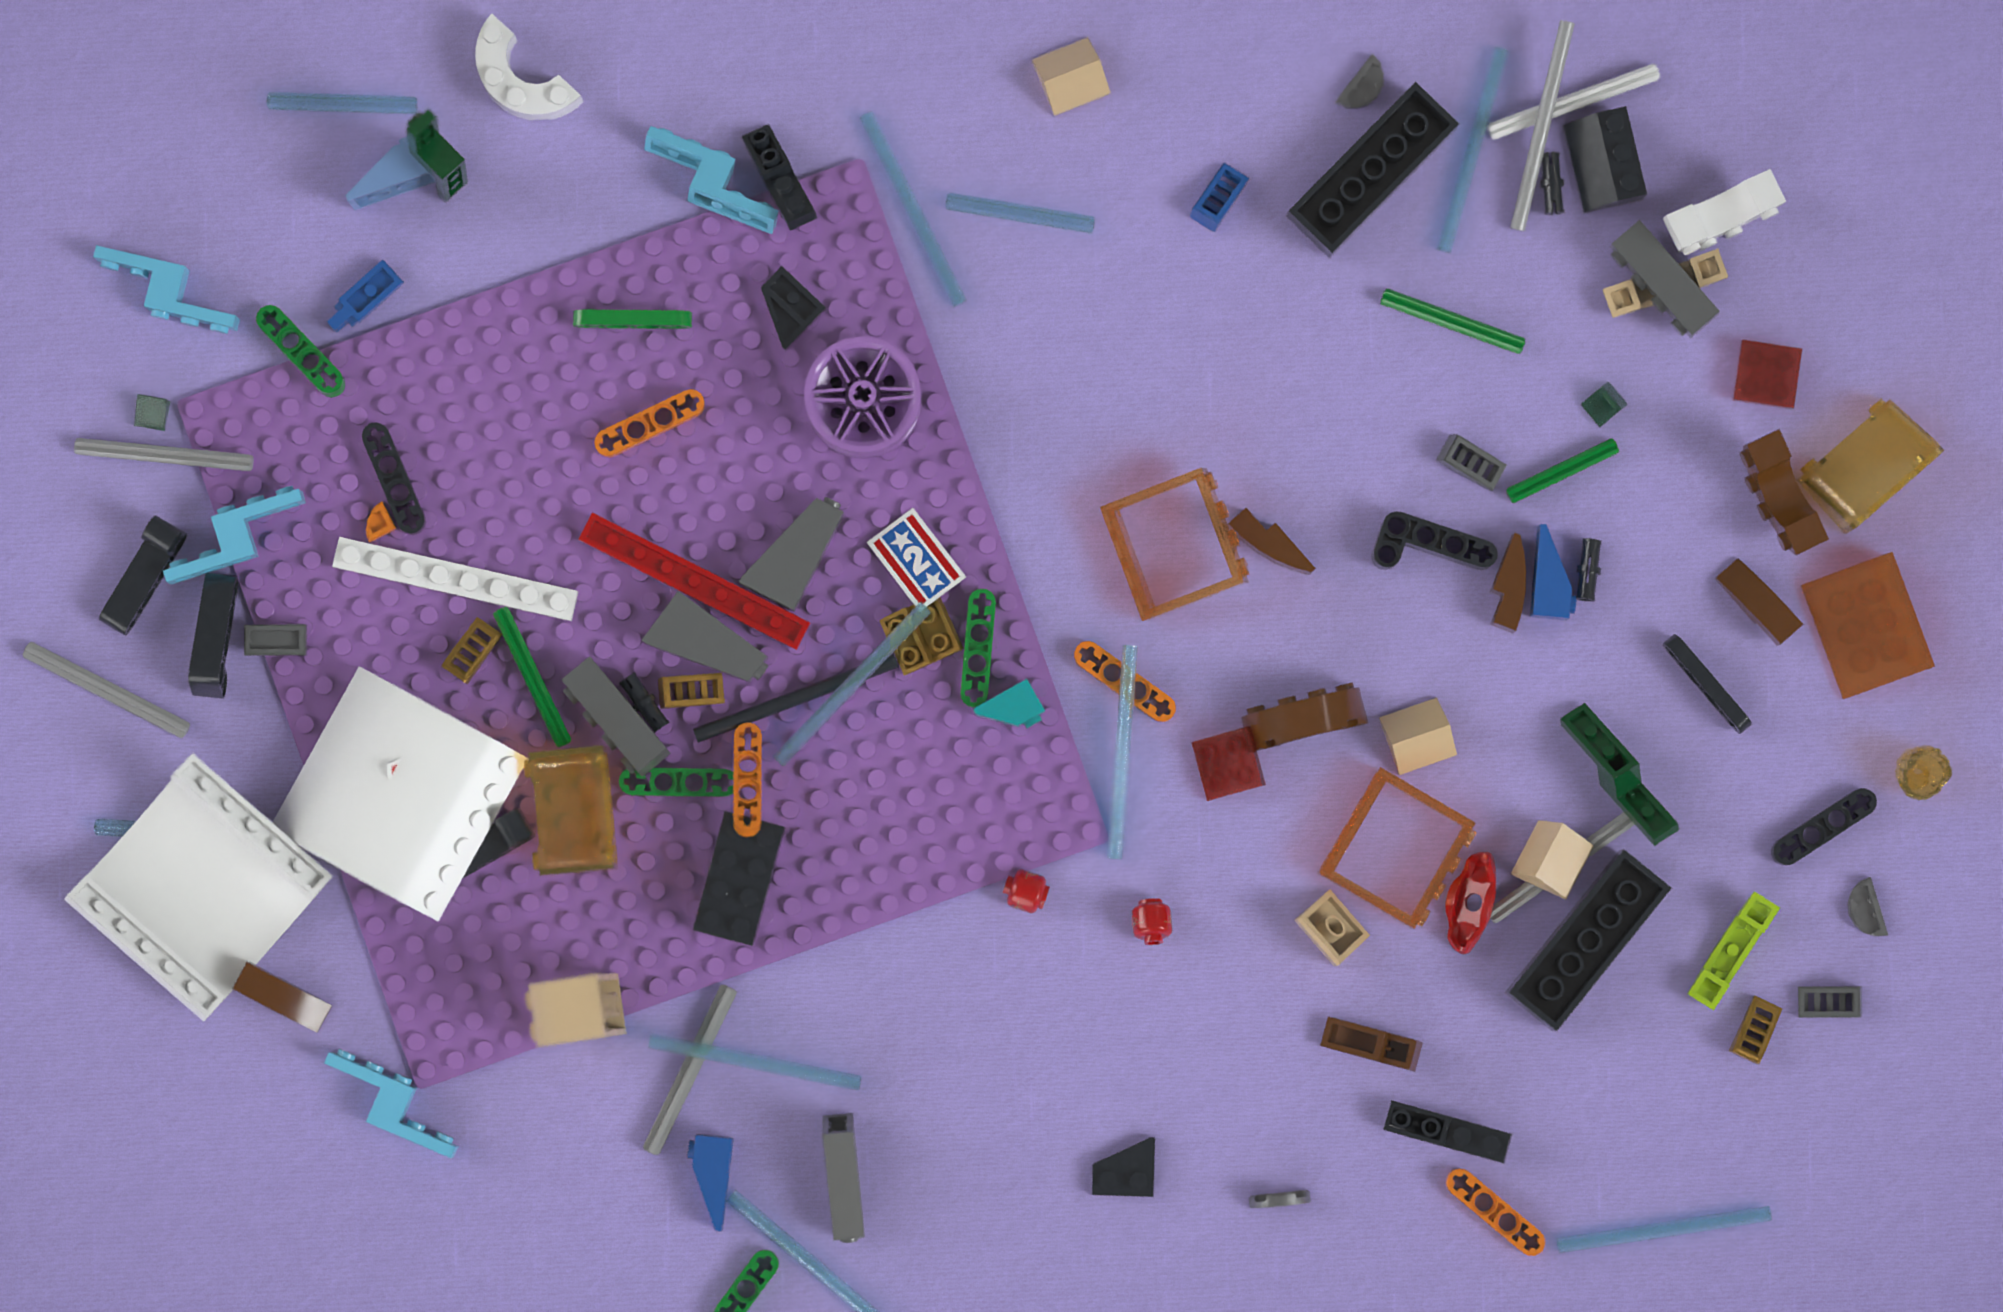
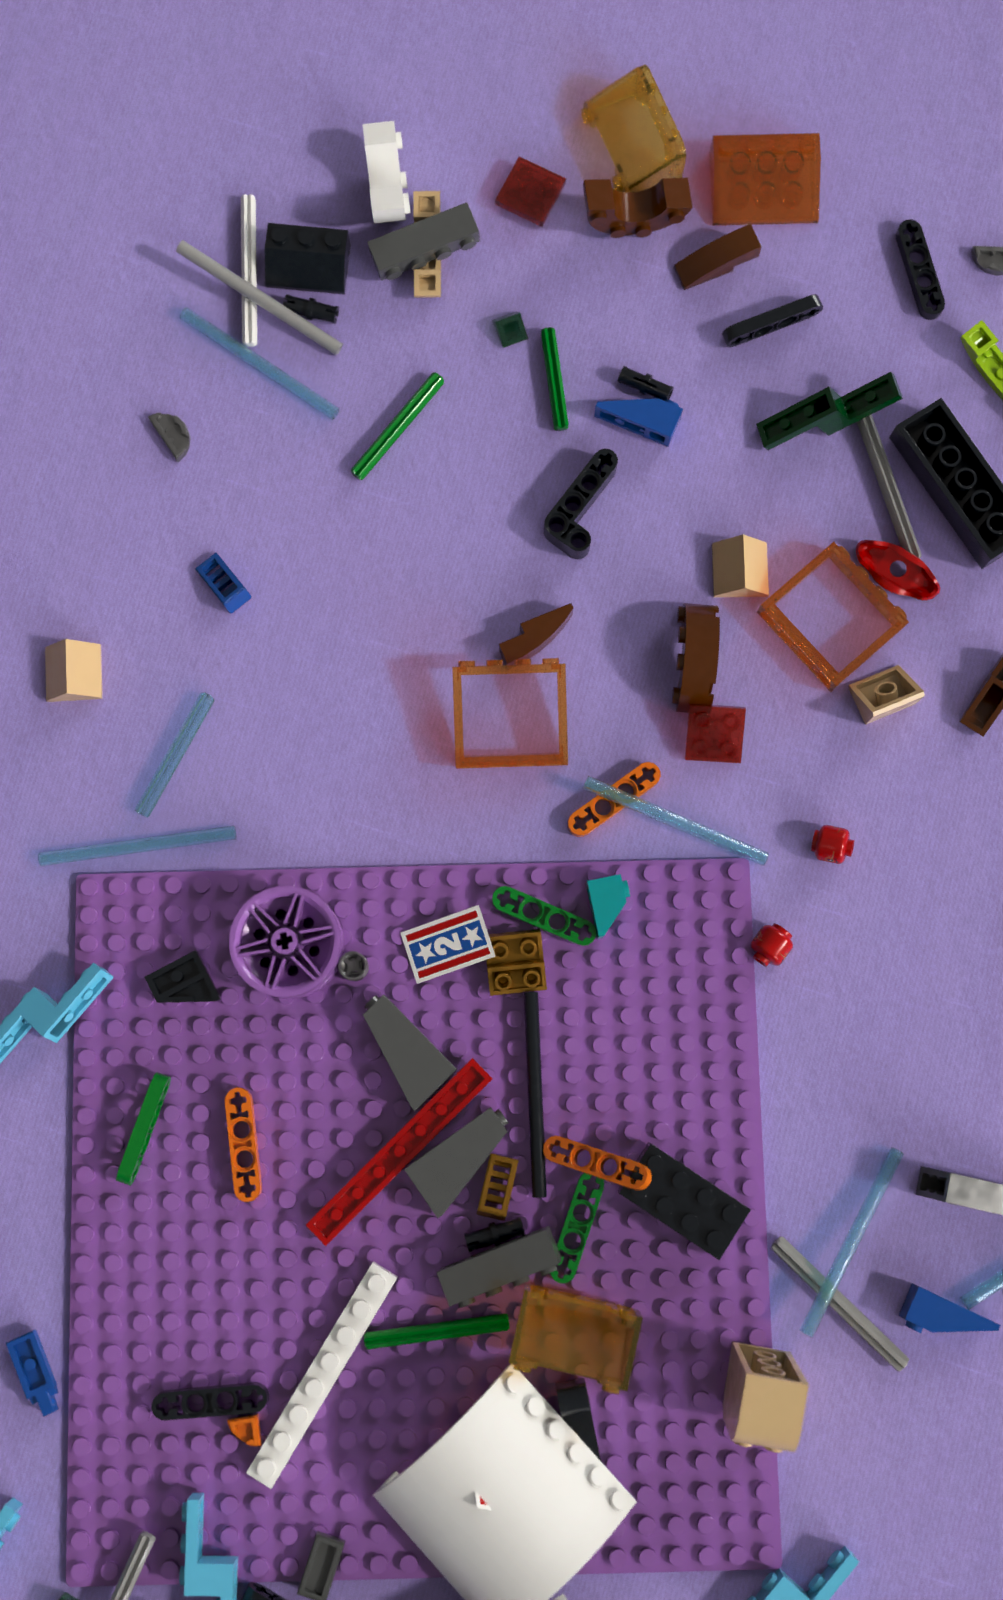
camera: 65 degrees left, 5 degrees down
(300, 351) = (61, 1449): green beam -> none
(455, 654) = (391, 1397): pearl gold slope -> none
(779, 177) = (65, 953): black slope -> none
(852, 684) = (540, 1038): clear light blue piece -> none
(863, 467) = (349, 964): none -> flat silver wheel
(1372, 170) = (246, 445): black brick -> none
(1448, 450) = (509, 462): dark grey slope -> none
(1510, 585) = (638, 450): reddish brown slope -> none
(1553, 858) = (881, 490): tan slope -> none
(1922, 772) = (901, 174): clear yellow hair -> none

